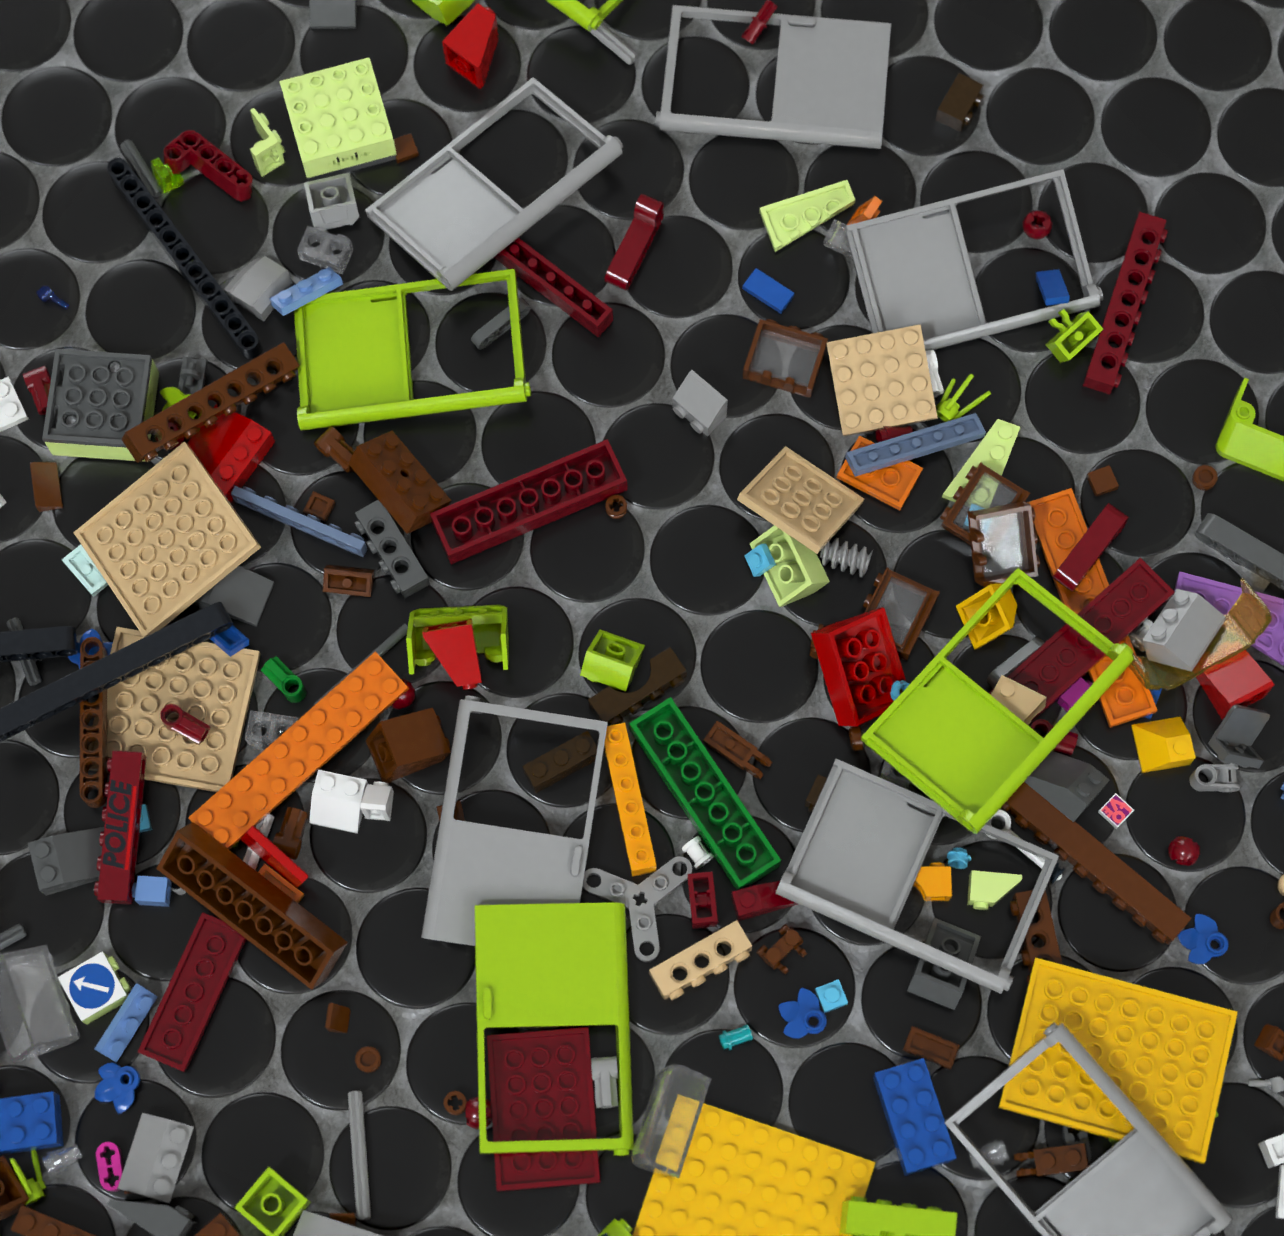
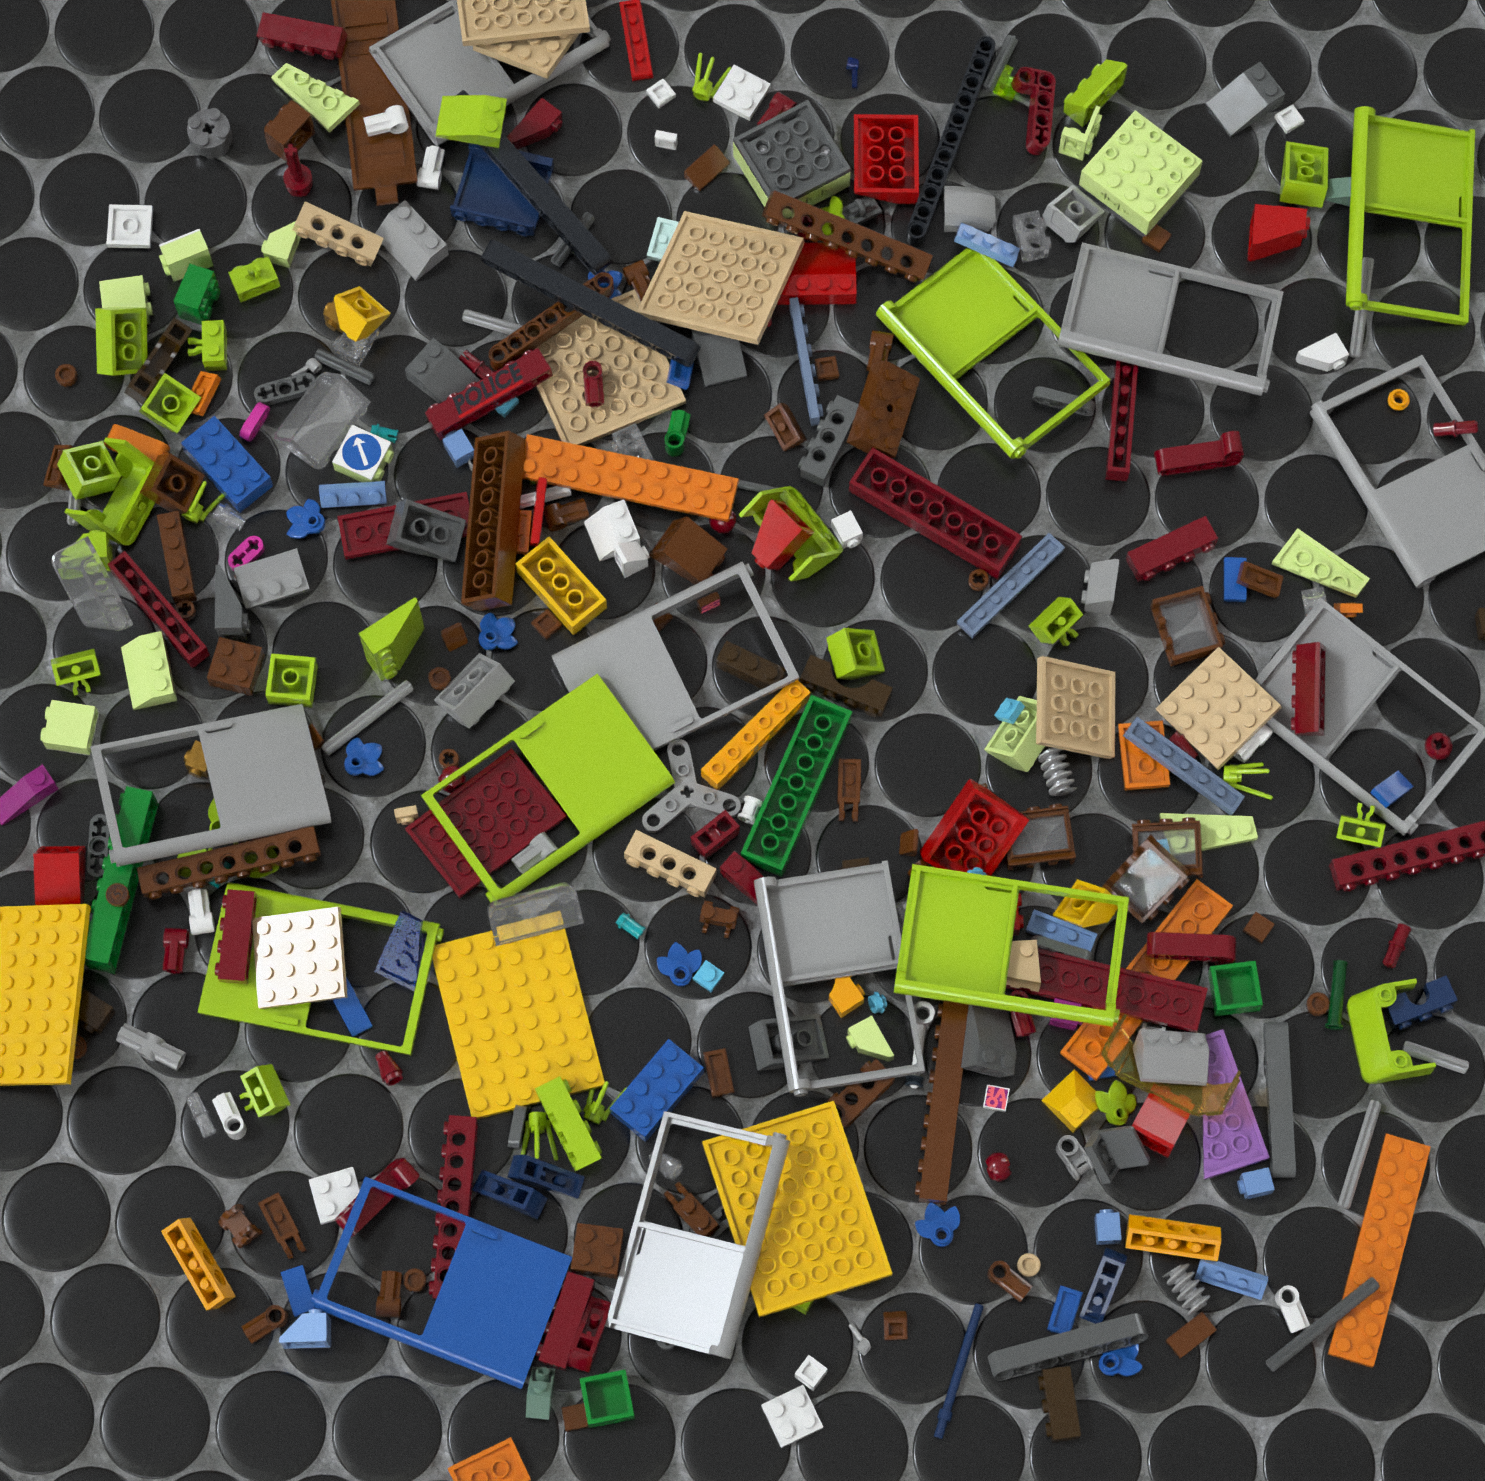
camera: 55 degrees right, 0 degrees up
(51, 779) = (490, 322): none -> light grey axle
(83, 821) = (474, 364): none -> dark red axle
(86, 952) = (384, 433): none -> teal pin
(106, 615) = (637, 276): none -> reddish brown piece
(160, 319) = (886, 157): none -> red slope
(215, 976) = (425, 531): none -> dark grey slope
(229, 106) = (1096, 90): none -> lime slope
(306, 1085) = (392, 639): none -> lime slope
(359, 883) = (561, 585): none -> yellow brick
(361, 971) = (499, 630): none -> blue plate
(385, 922) = (546, 624): none -> reddish brown tile
(397, 1181) = (365, 755): none -> blue plate
(404, 1033) = (474, 690): none -> light grey slope
(470, 759) = (708, 602): none -> reddish brown tile
(485, 1180) = (406, 815): none -> tan plate
(489, 589) = (847, 530): none -> white brick
(615, 81) = (1324, 354): none -> white slope
(642, 482) = (1010, 585): none -> sand blue plate
(698, 45) = (1401, 394): none -> light orange plate
(704, 323) = (1171, 549): none -> dark red brick
(705, 464) = (1056, 621): none -> lime brick
(785, 269) = (1259, 579): none -> reddish brown plate
(824, 729) = (909, 843): none -> reddish brown slope
(896, 1188) = (596, 1111): none -> lime plant
(921, 291) = (1309, 689): none -> dark red slope
(996, 652) = (1060, 930): none -> medium blue plate
(1150, 535) = (1235, 988): none -> green piece
(1189, 709) = (1116, 1101): none -> lime plate
(1194, 377) = (1396, 945): none -> dark red axle
(1208, 455) = (1337, 995): none -> dark green pin
(1264, 373) = (1438, 998): none -> dark blue arch

